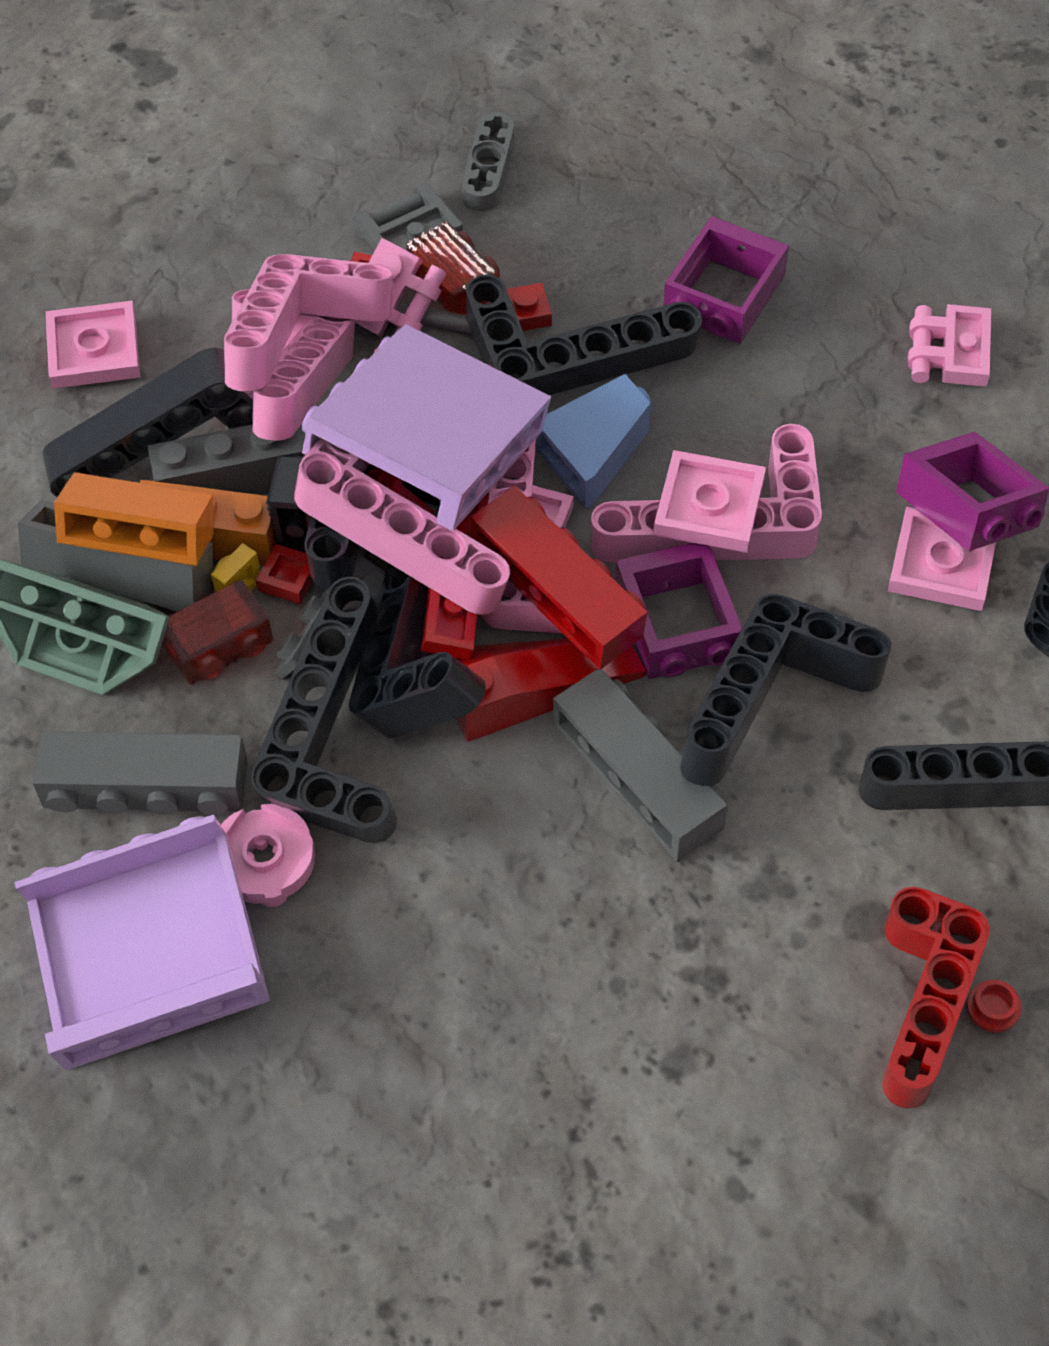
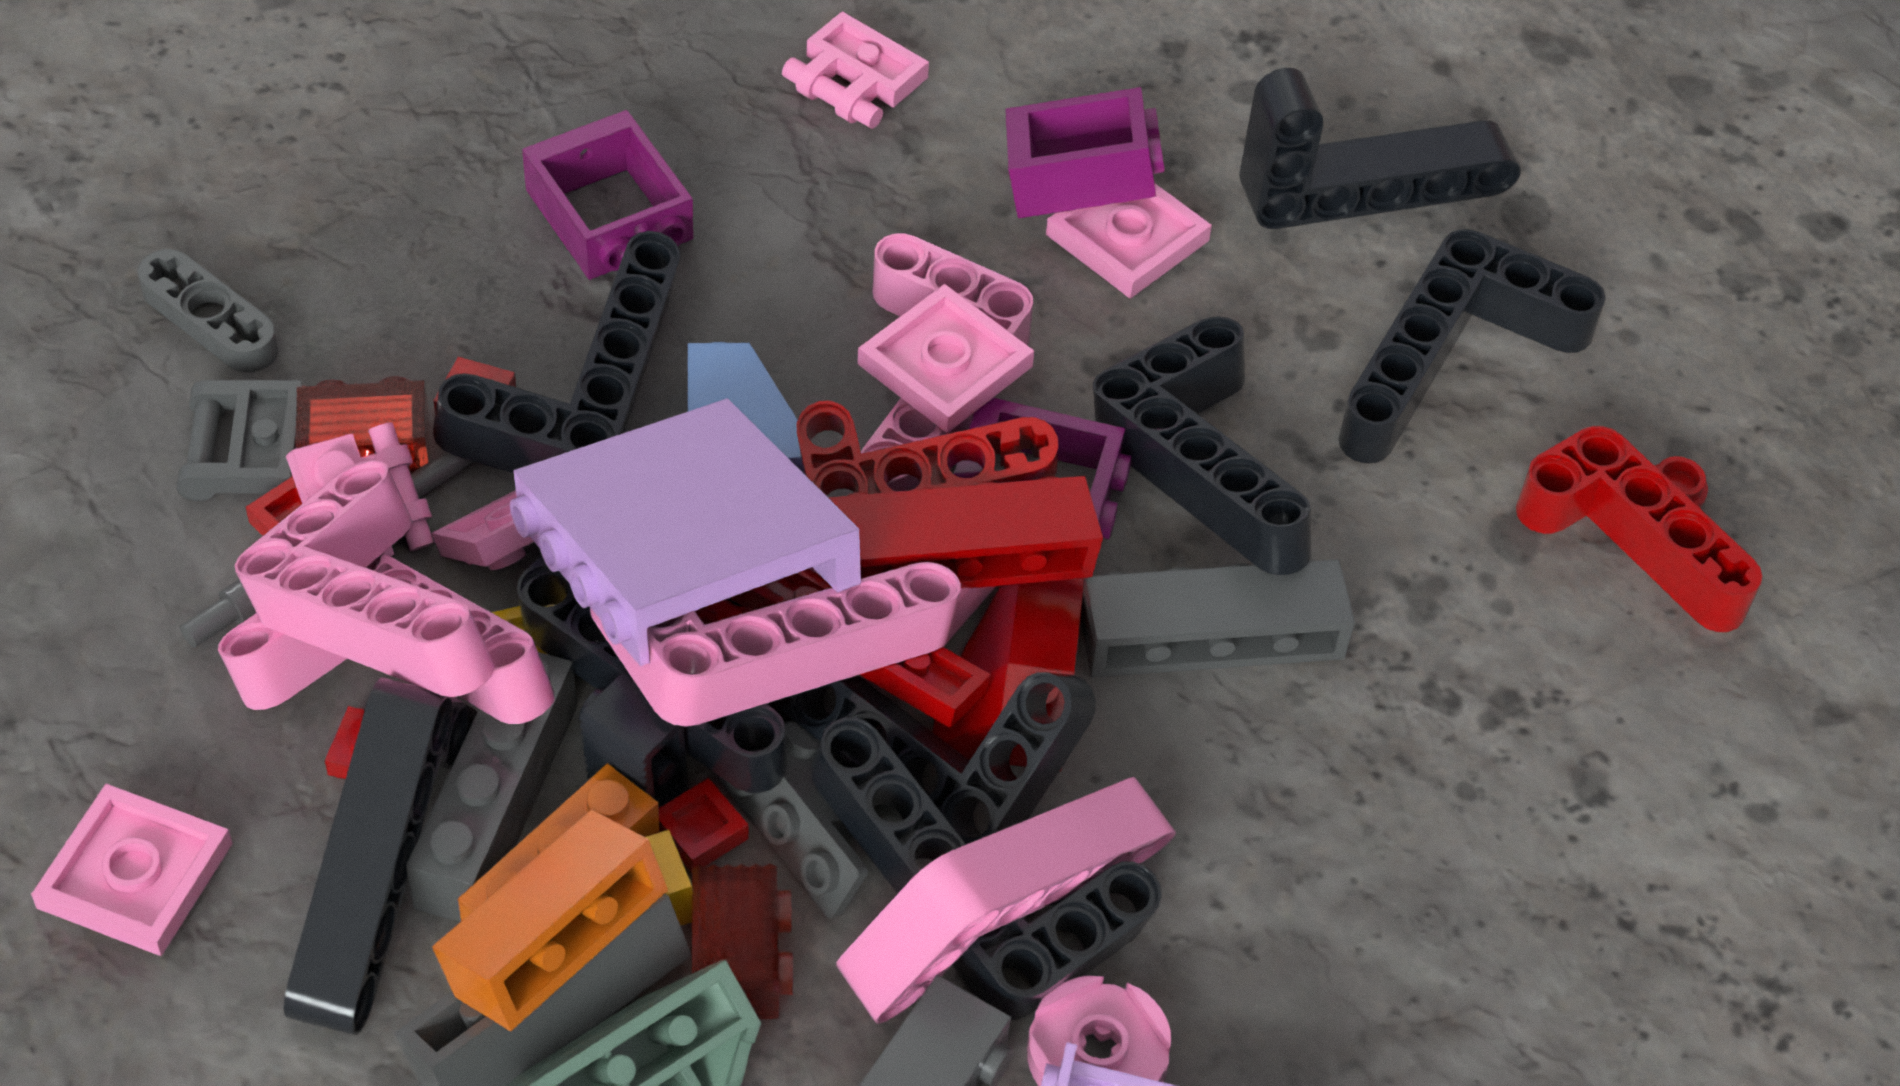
camera: 65 degrees left, 5 degrees down
(336, 737) = (994, 885): none -> bright pink beam
(579, 509) = (926, 459): none -> red beam

